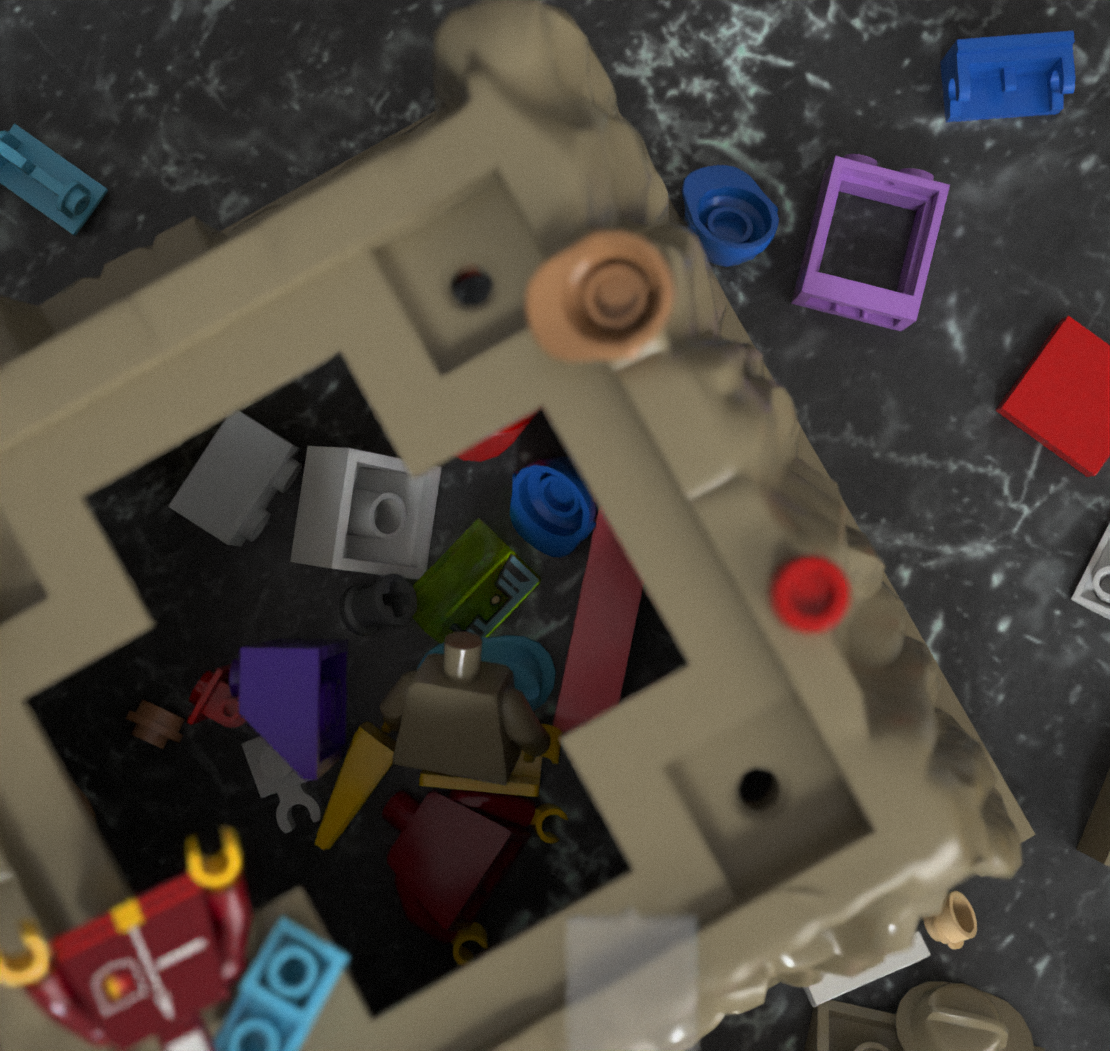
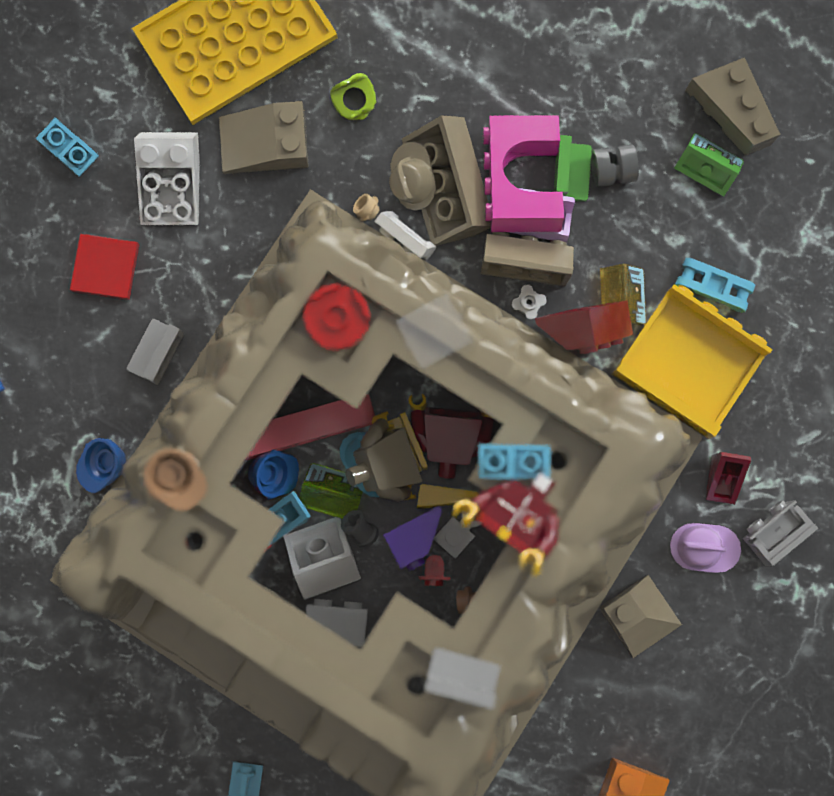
camera: 120 degrees left, 5 degrees down
(469, 489) = (292, 511): none -> medium azure slope
(766, 801) = (336, 317): none -> red tile
(809, 594) = (249, 341): red tile -> none
(856, 300) = (111, 388): medium lavender window -> none
(880, 410) = (155, 351): none -> light grey panel

